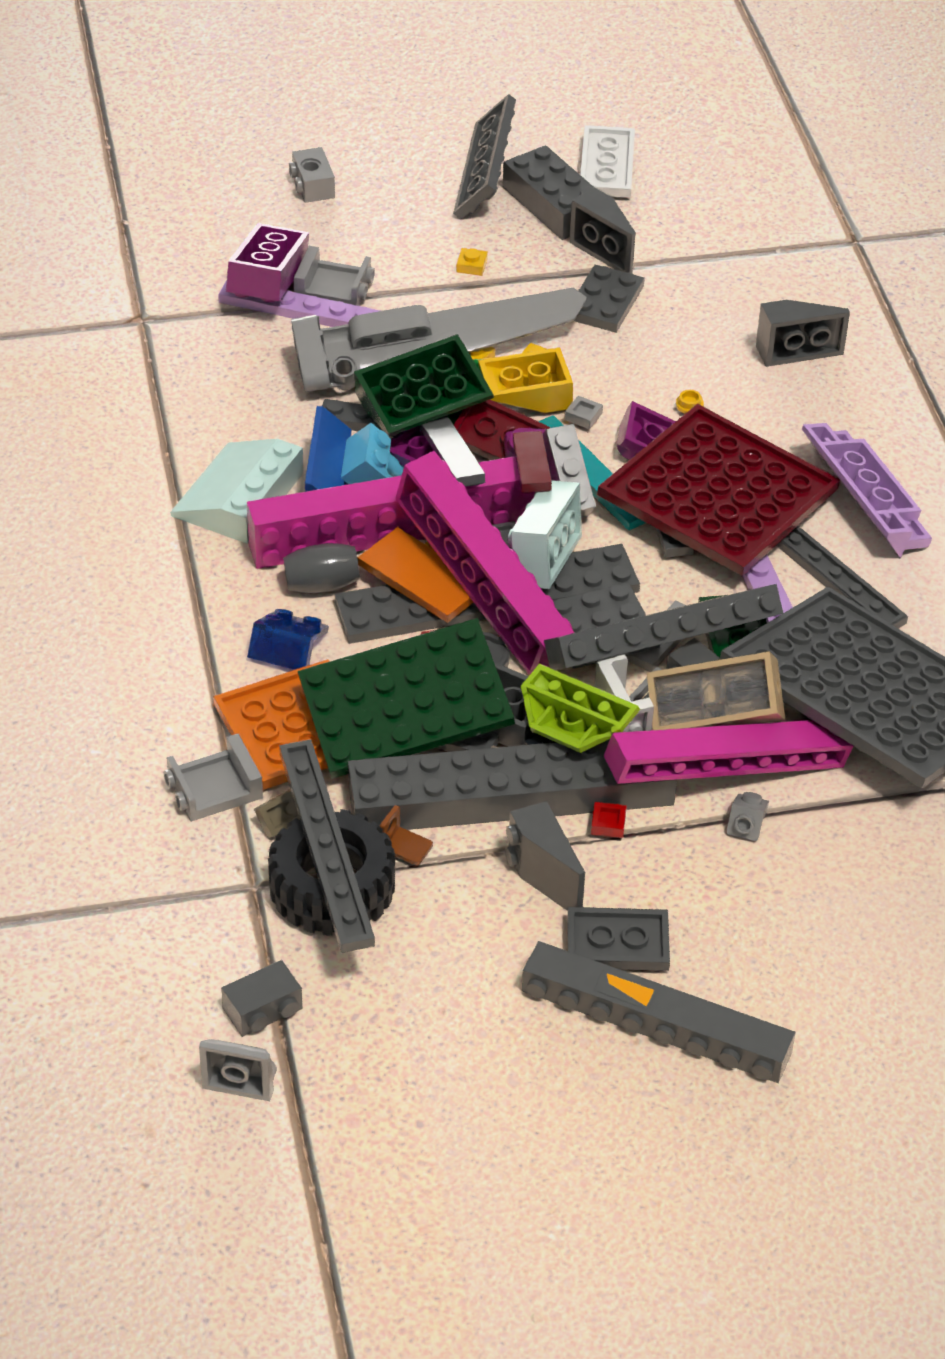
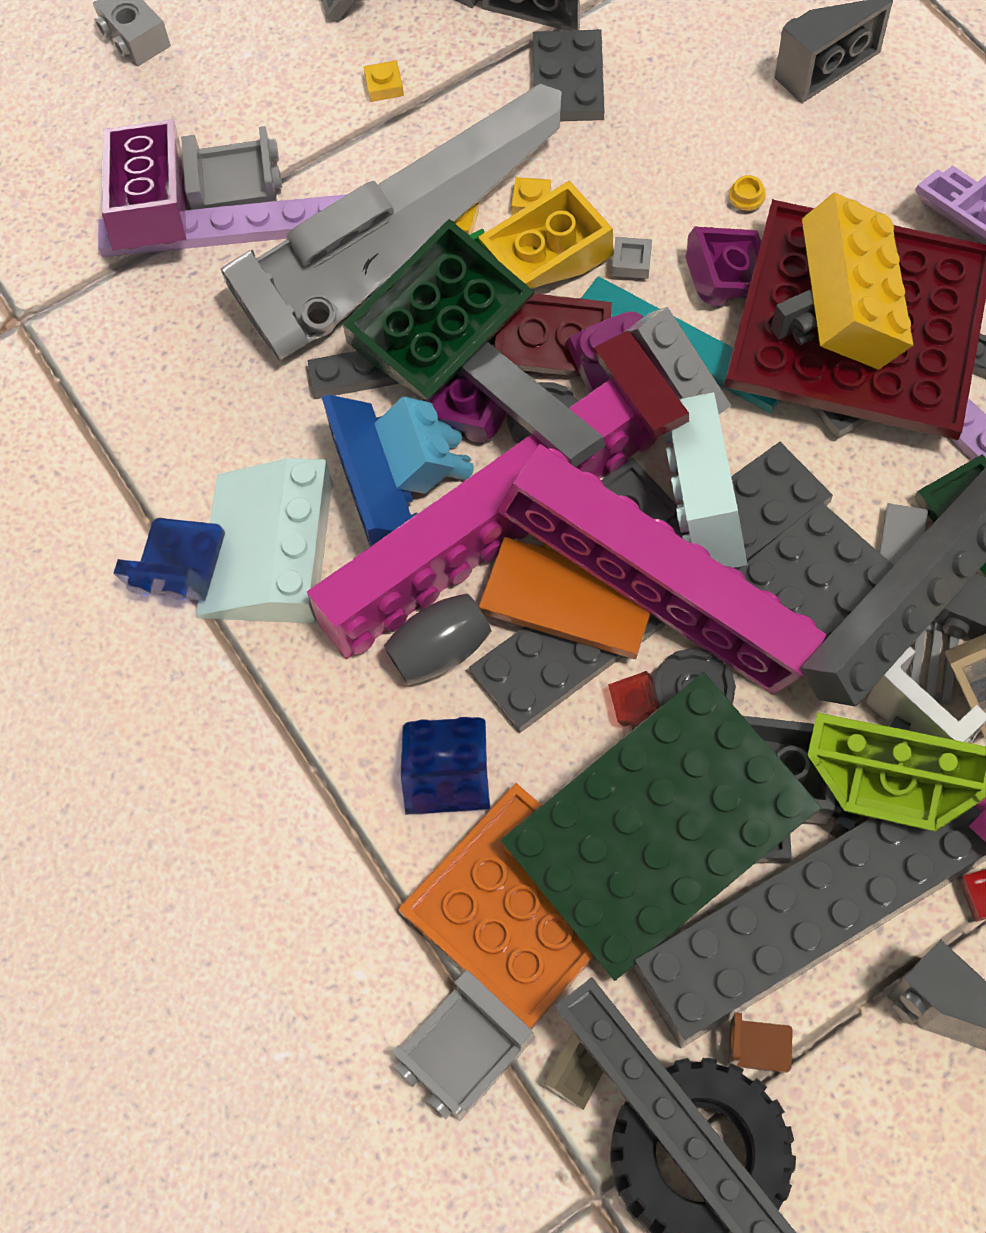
camera: 15 degrees left, 20 degrees up
(172, 476) = (175, 560): none -> clear blue bracket
(664, 464) = (795, 318): none -> dark grey tile
(715, 454) = (856, 281): none -> yellow brick

